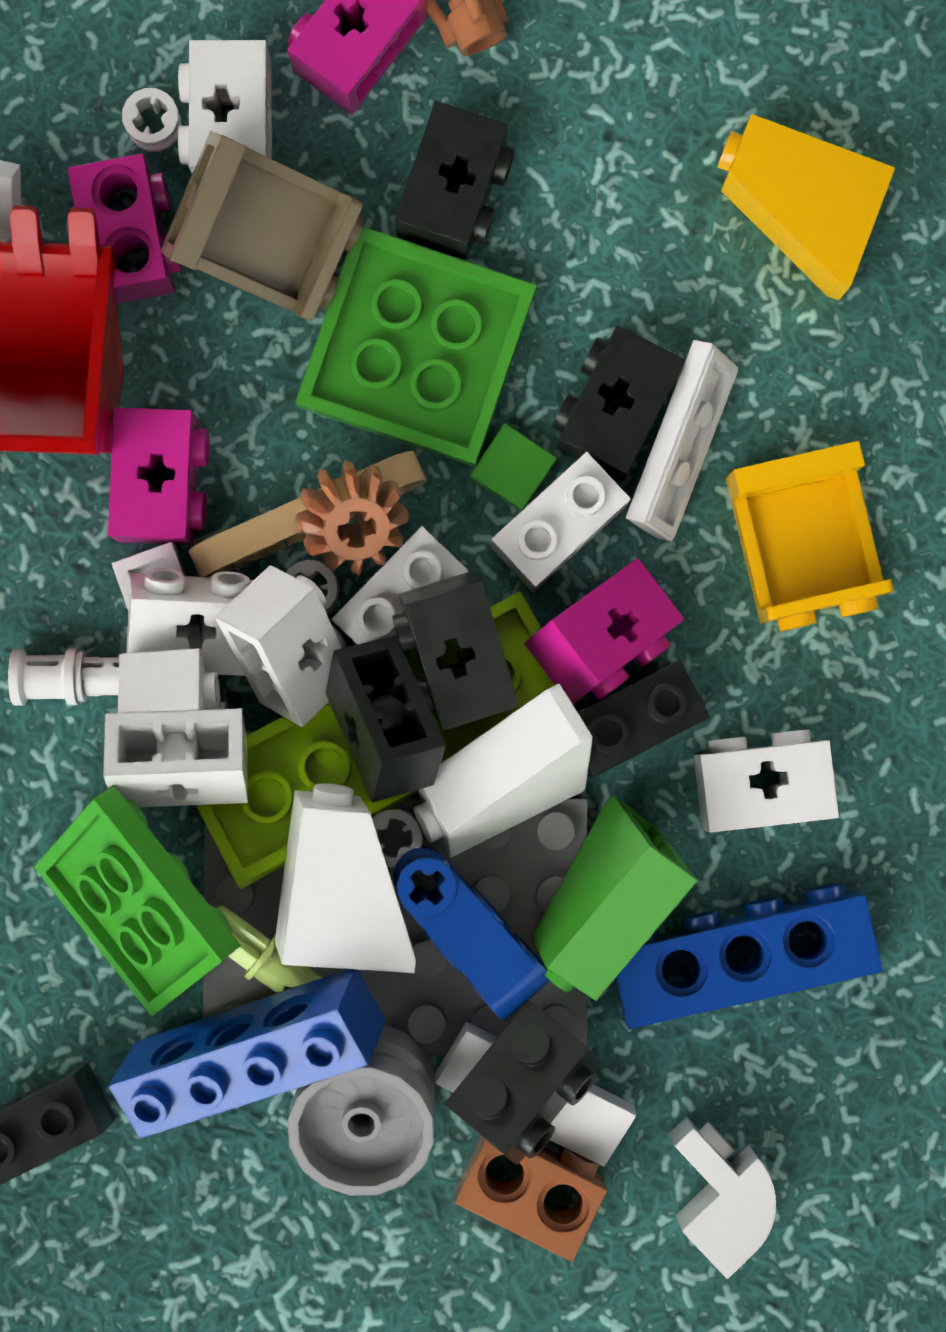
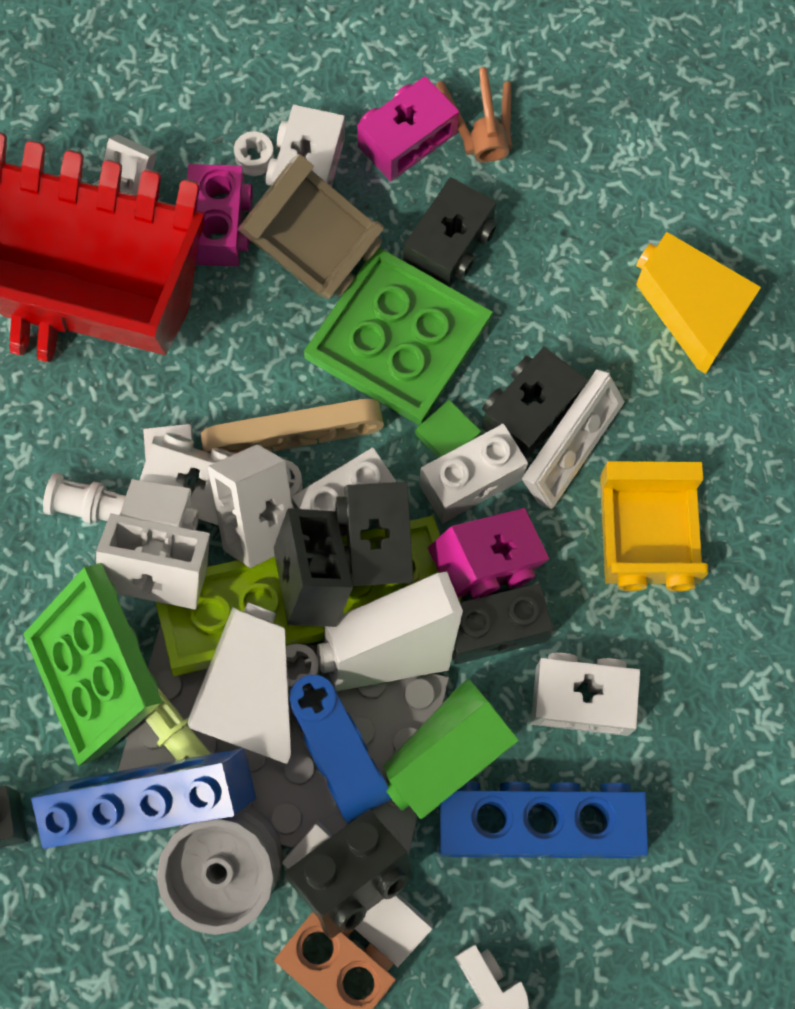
camera: 10 degrees right, 15 degrees down
(139, 446) = (190, 354): dark pink brick -> none
(330, 511) = (334, 441): nougat gear -> none

